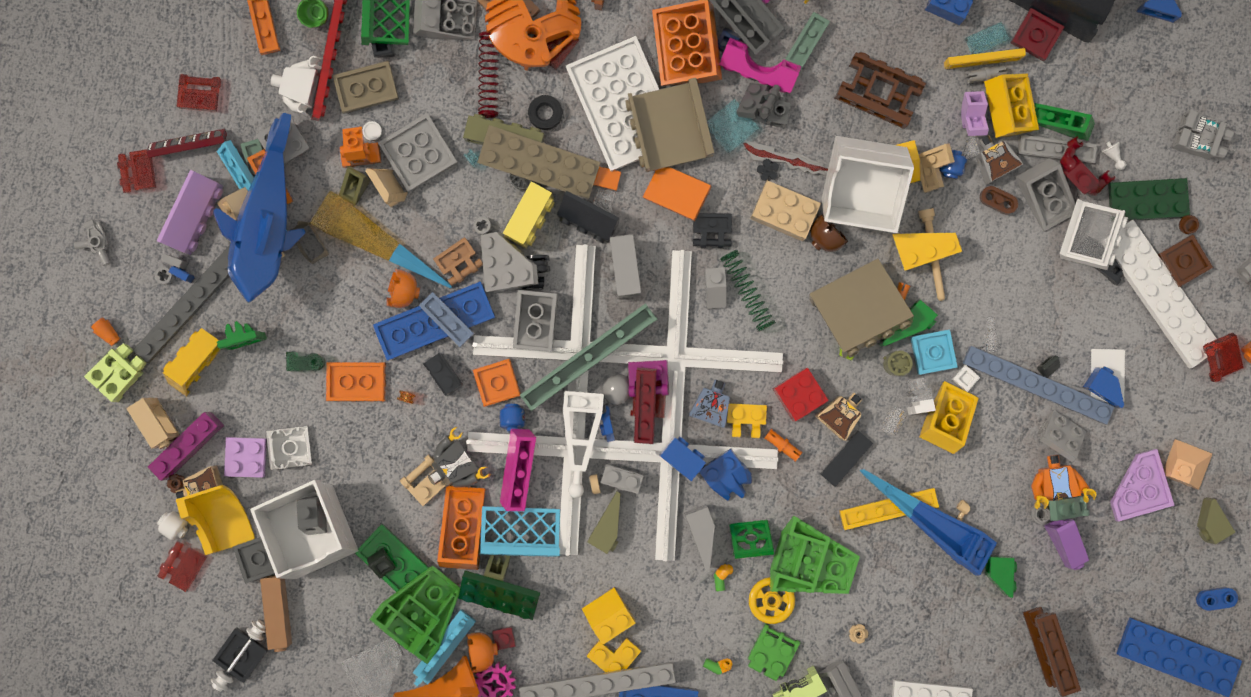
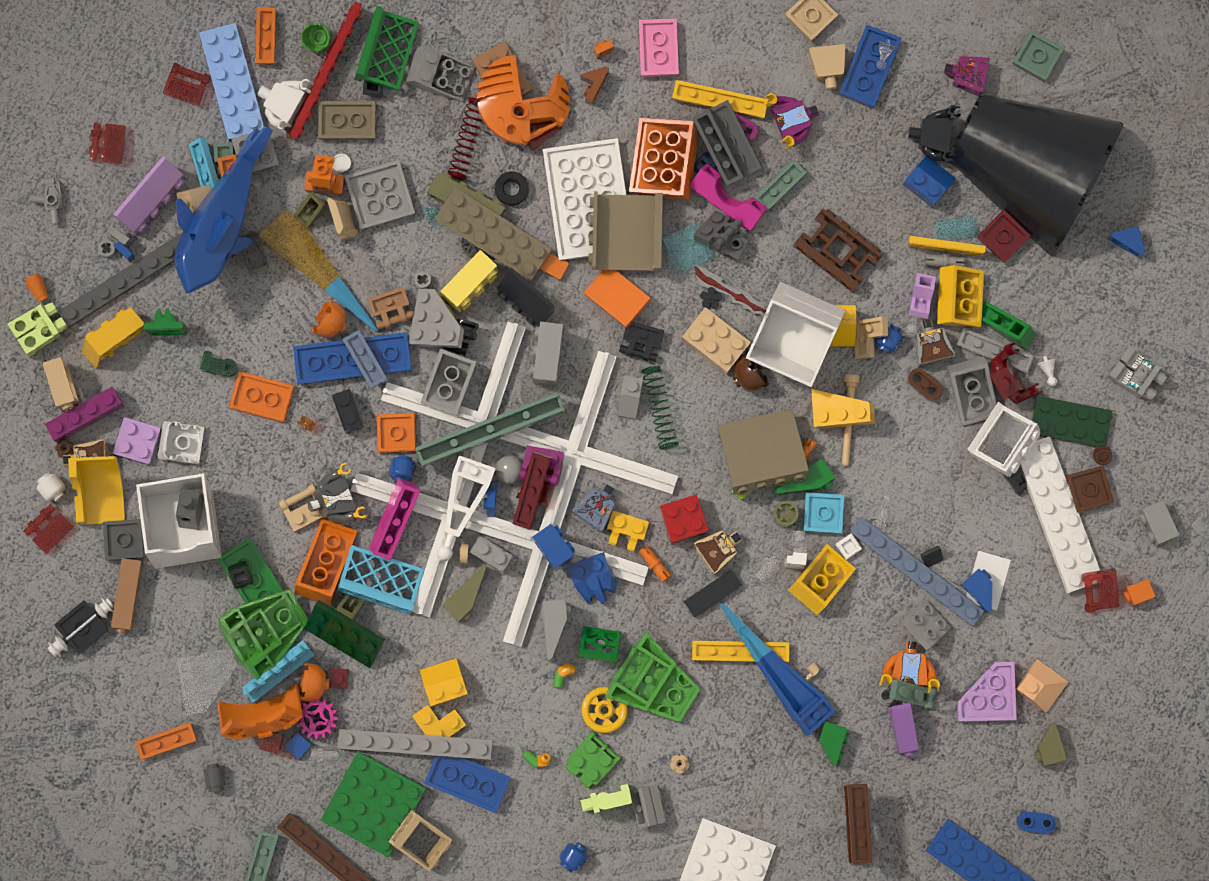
camera: 15 degrees right, 5 degrees down
(186, 143) = (164, 129): dark red tile -> none
(241, 76) = (231, 80): none -> light blue plate

